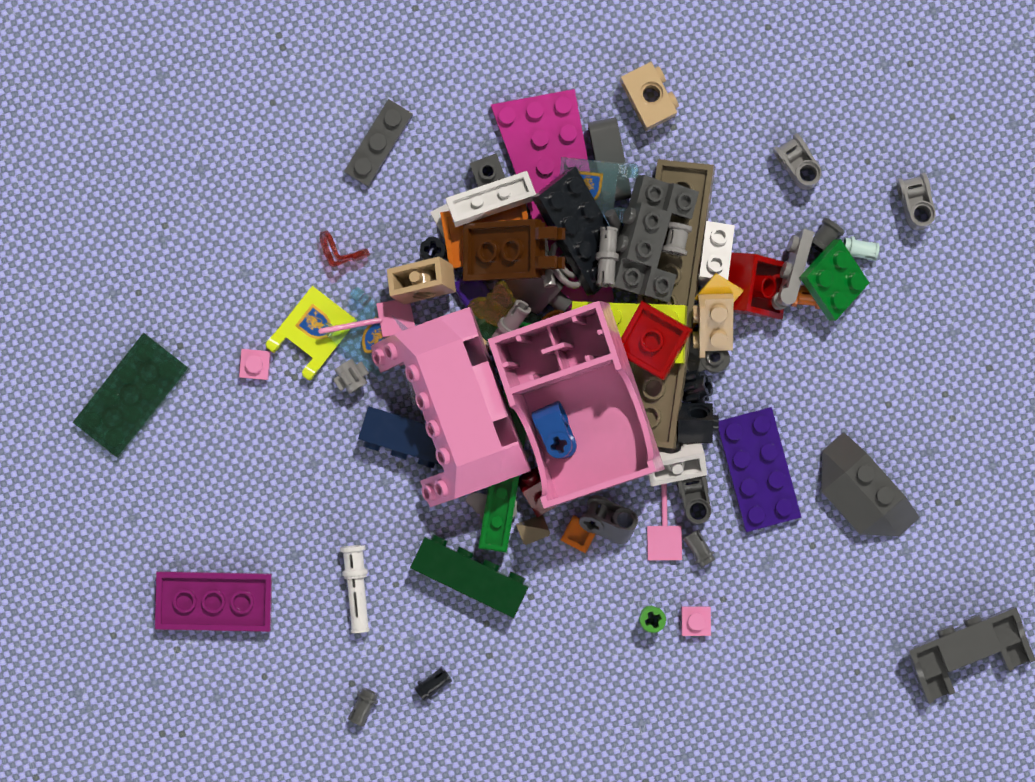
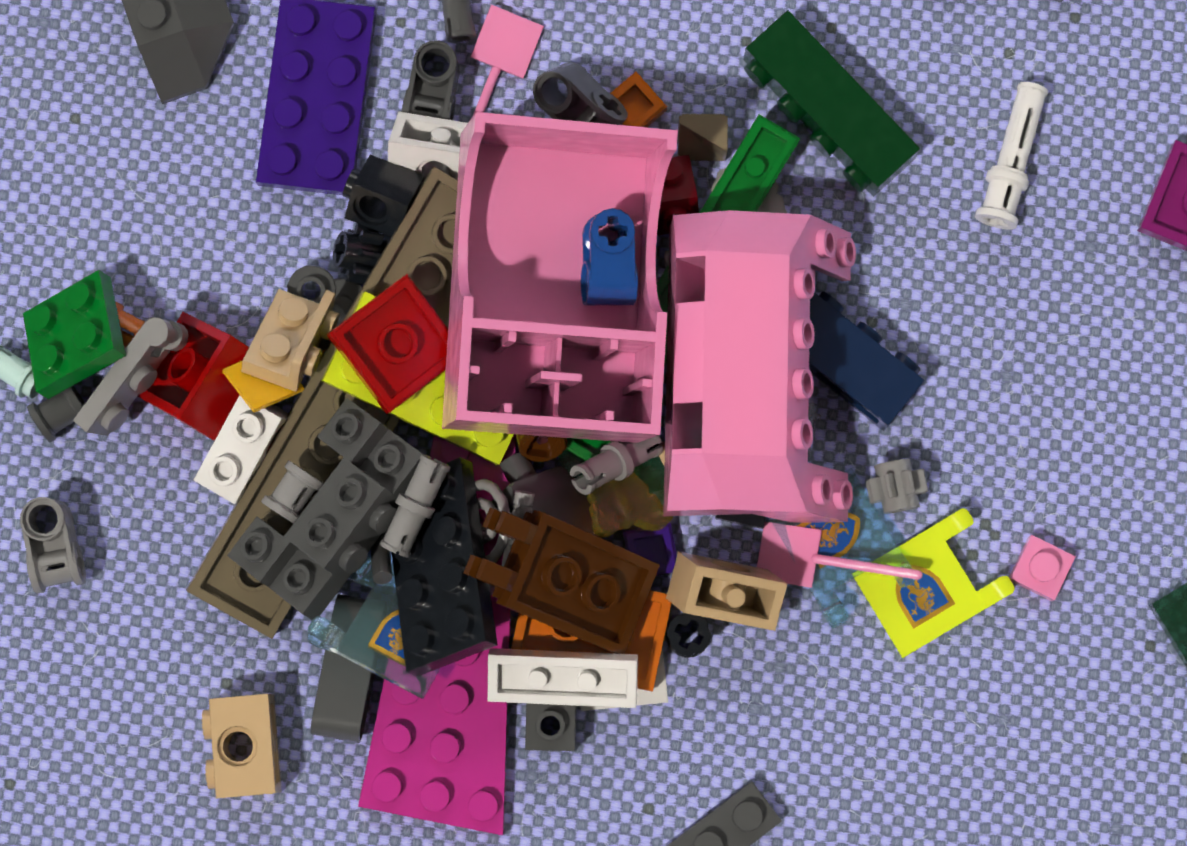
camera: 155 degrees left, 5 degrees down
(359, 255) = (852, 722): clear red piece -> none

